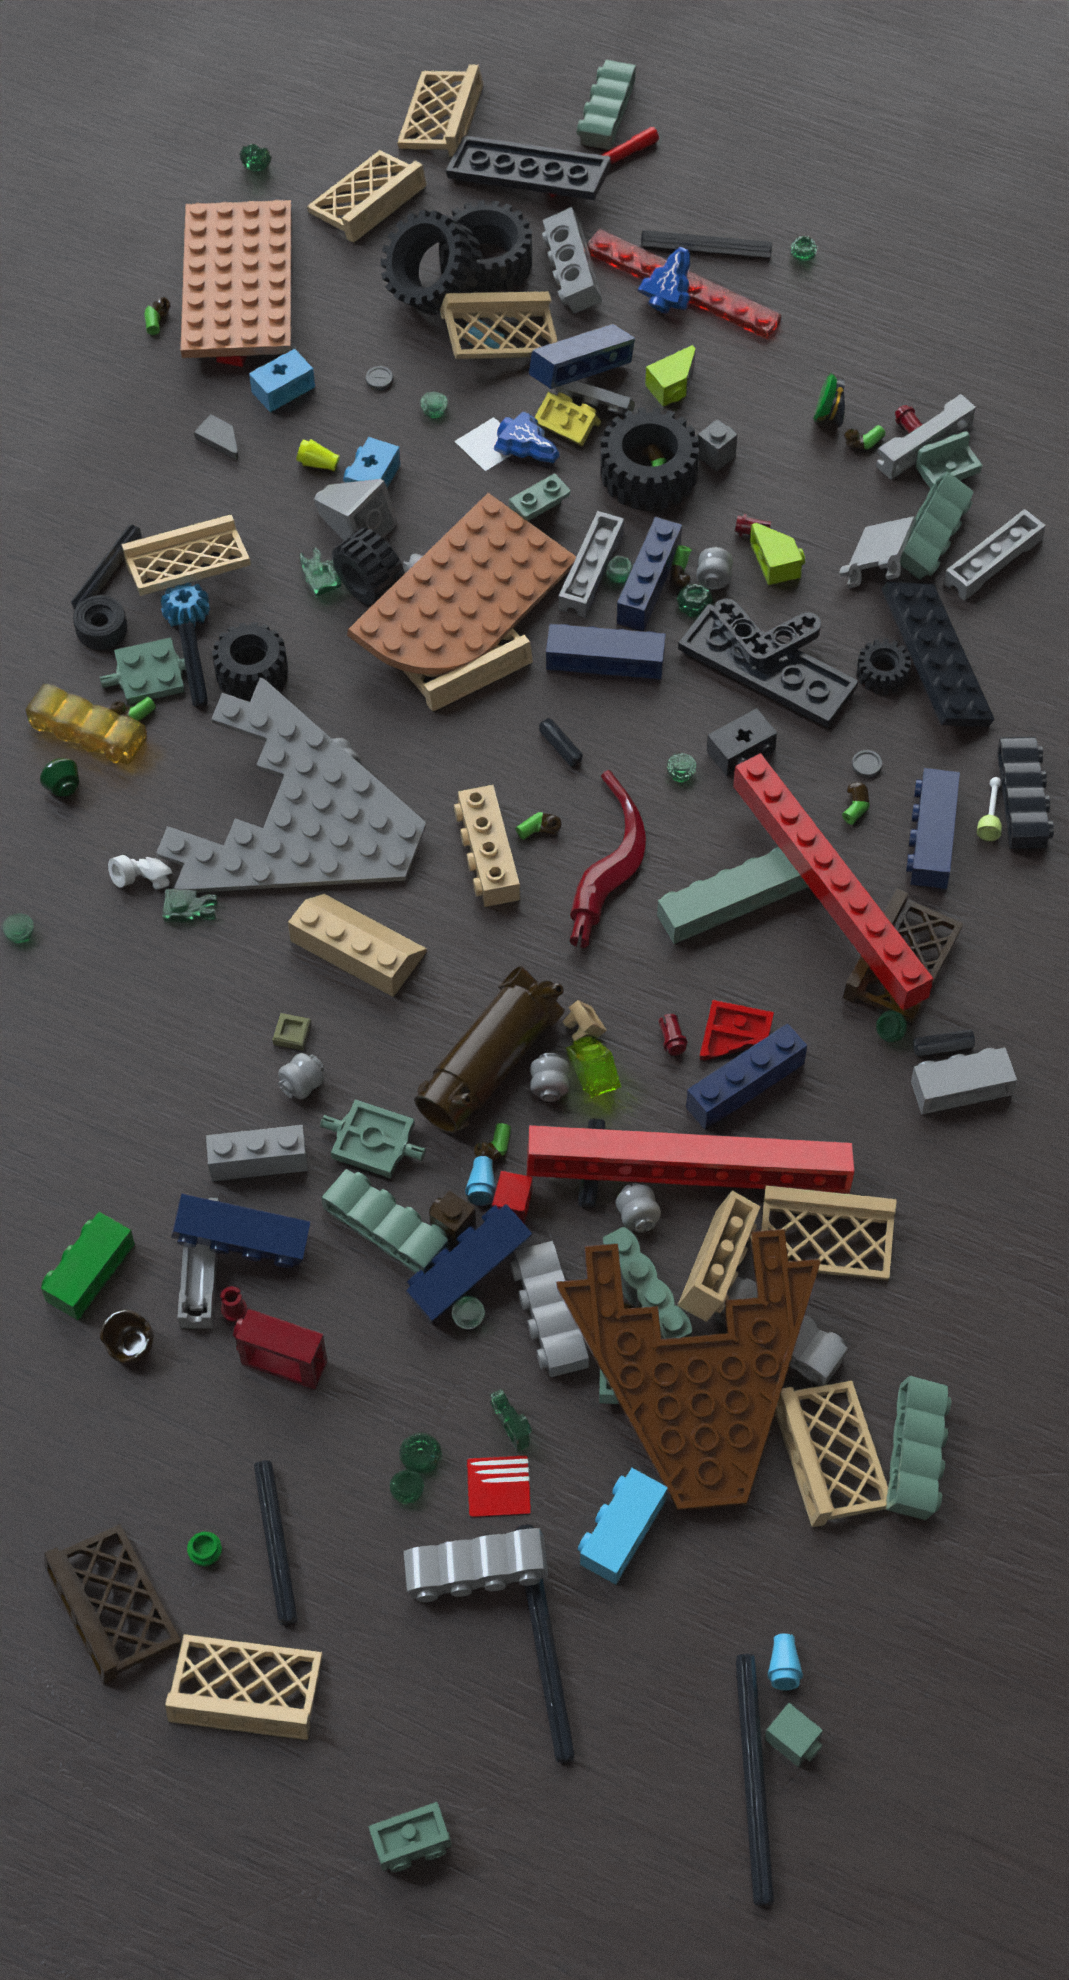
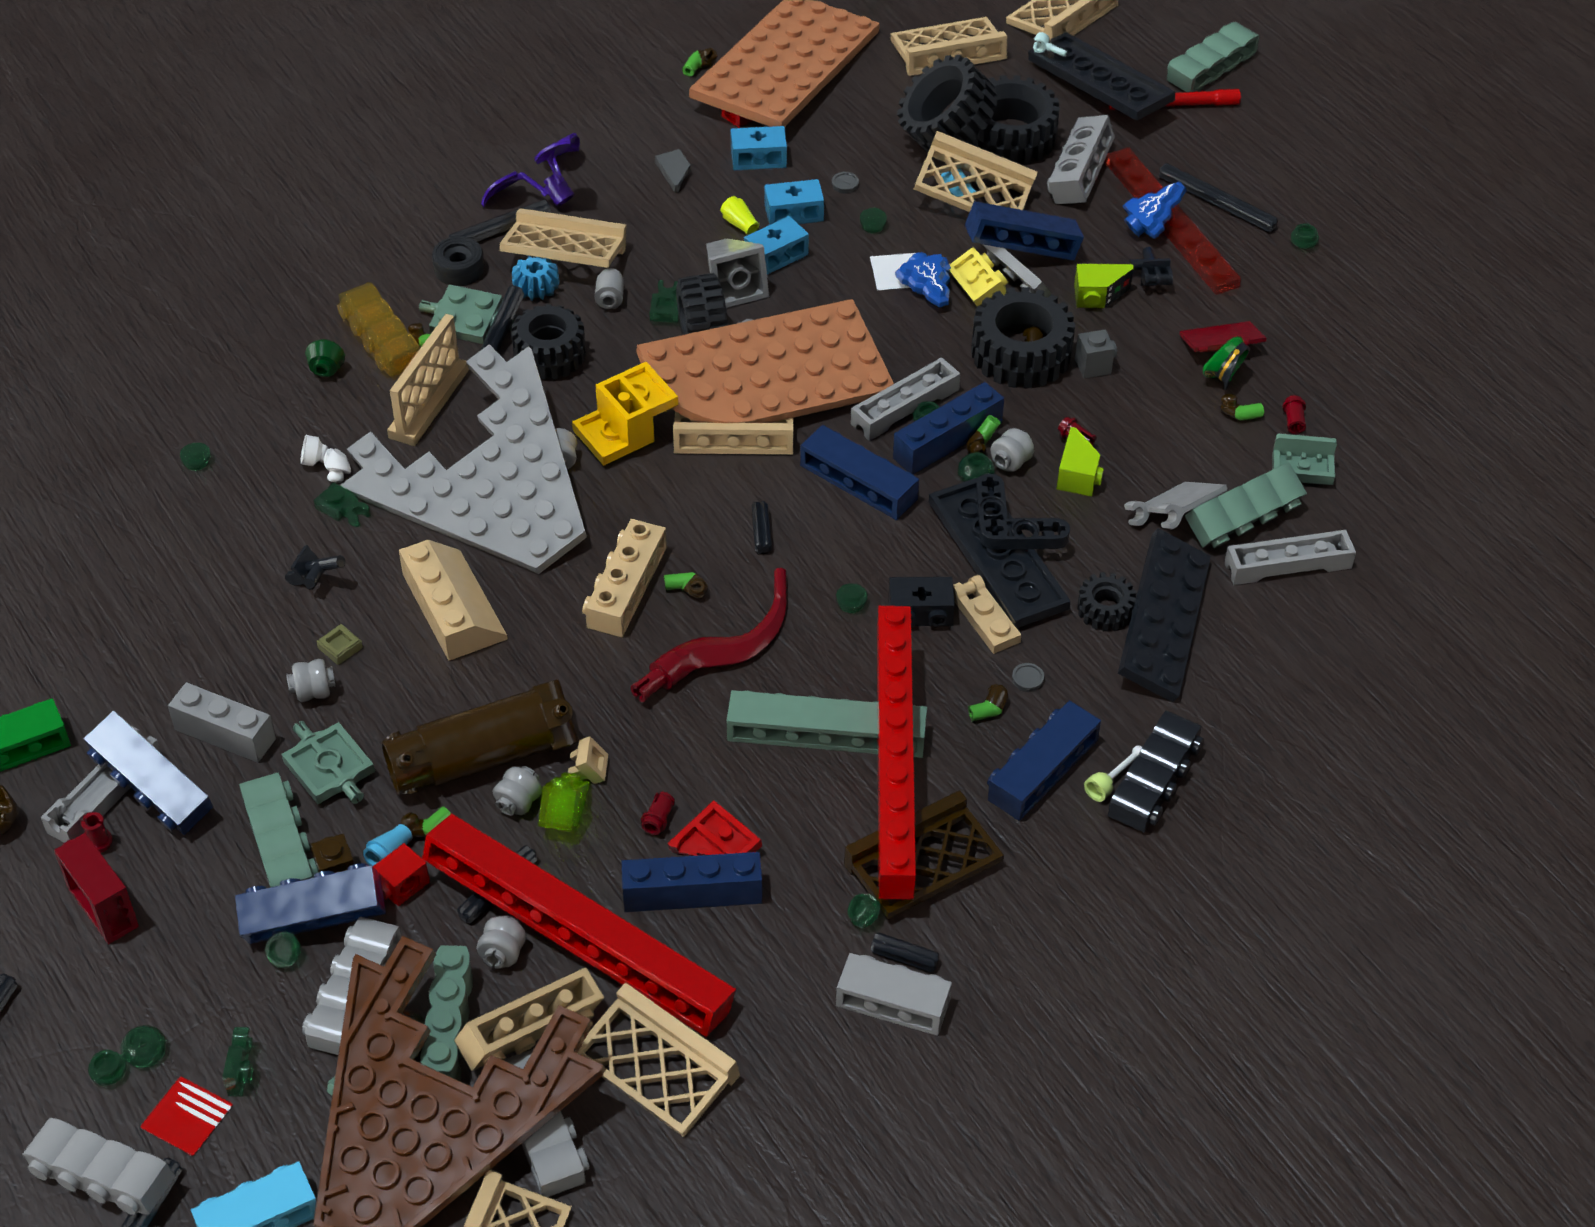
camera: 30 degrees right, 10 degrees down
(132, 504) = (555, 184): none -> dark purple plant
(180, 762) = (426, 384): none -> tan fence
(216, 981) = (309, 568): none -> black arm
(259, 583) = (609, 289): none -> light grey brick
(355, 420) = (797, 199): none -> dark azure brick
(375, 697) = (625, 413): none -> yellow bracket
(457, 159) = (1045, 45): none -> light aqua hand
(539, 497) = (897, 326): sand green bracket -> none
(708, 342) = (1153, 270): none -> black arm
(799, 727) = (986, 615): none -> tan plate
(804, 377) = (1216, 336): none -> dark red piece
(902, 452) = (1260, 432): light grey piece -> none

